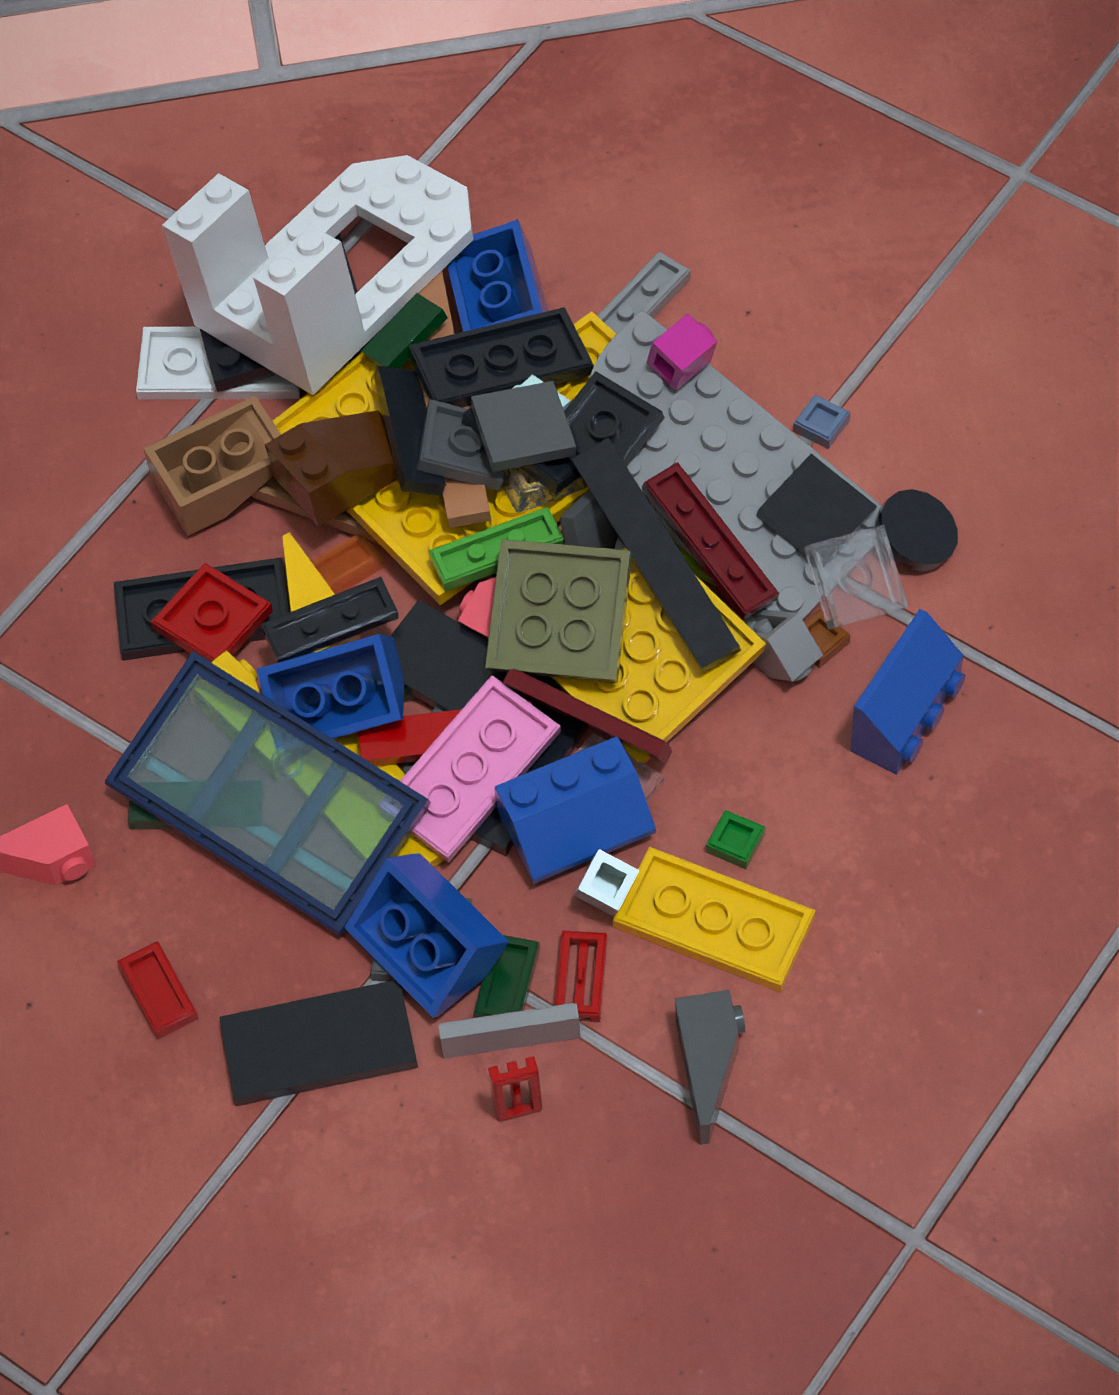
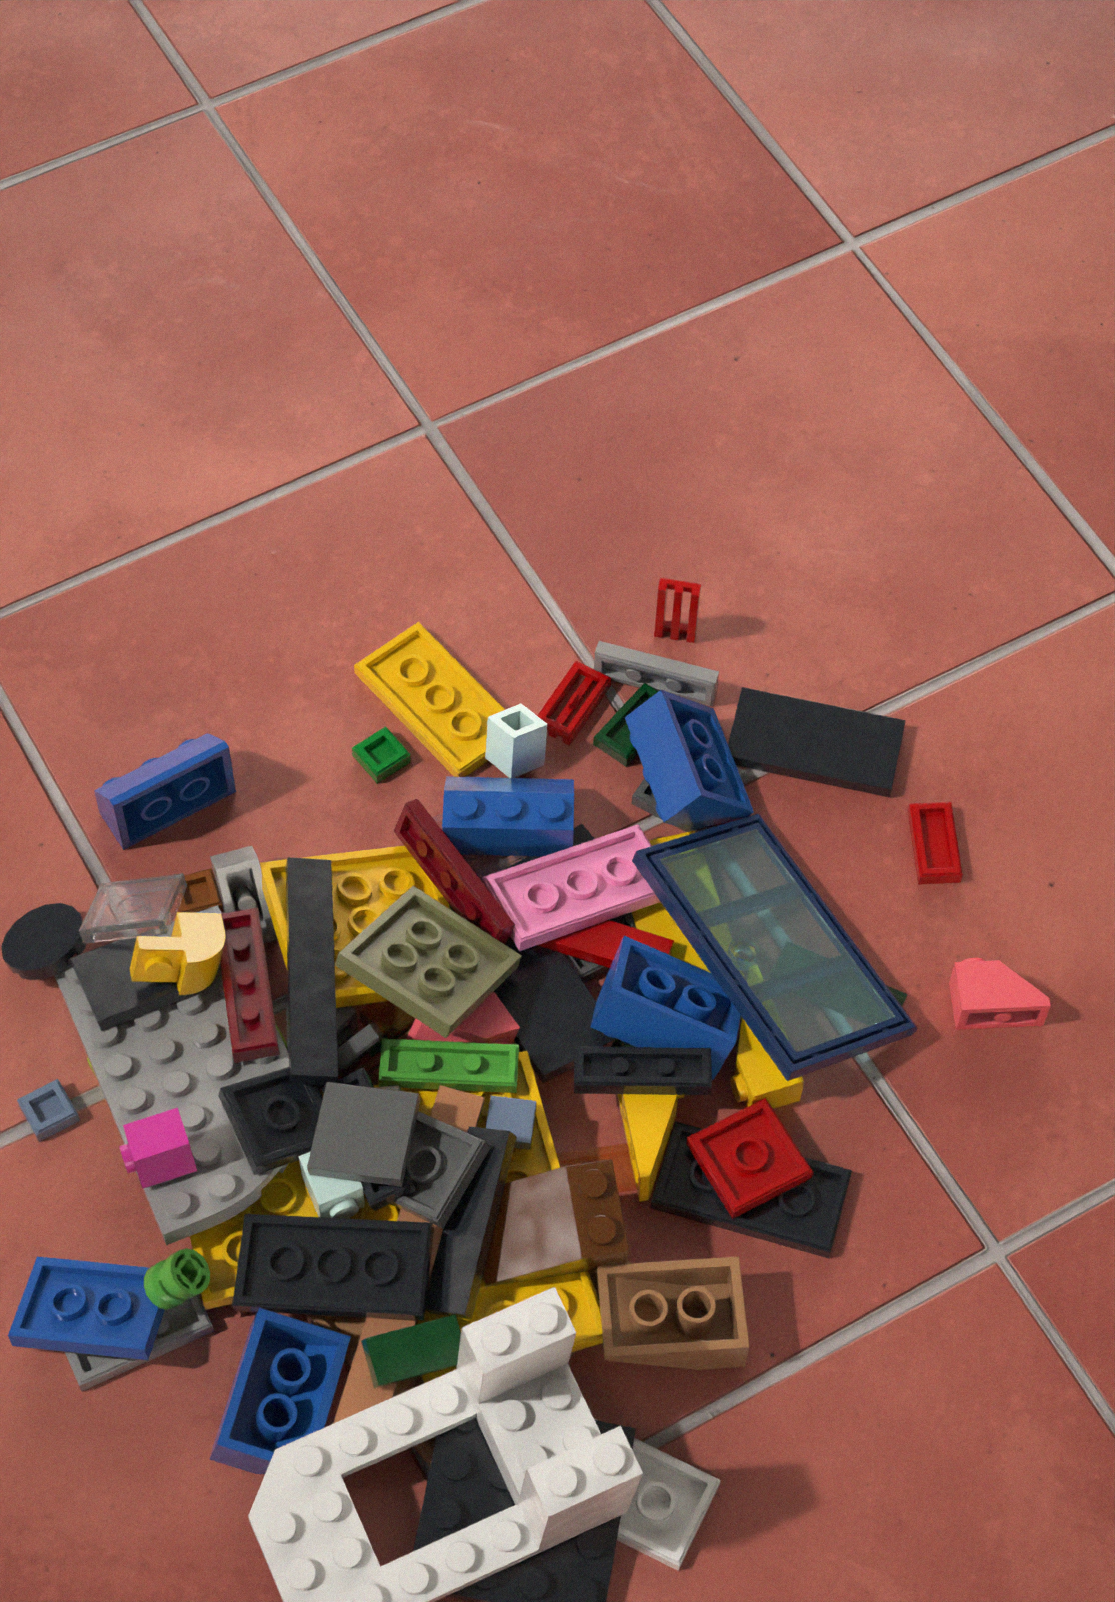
camera: 160 degrees left, 0 degrees up
(419, 526) = (513, 1116): none -> sand blue tile
(616, 306) = (176, 1279): none -> bright green wheel
(681, 282) = (86, 1309): none -> blue plate
(709, 1045) = (505, 591): dark grey slope -> none
(761, 524) = (186, 957): none -> yellow brick

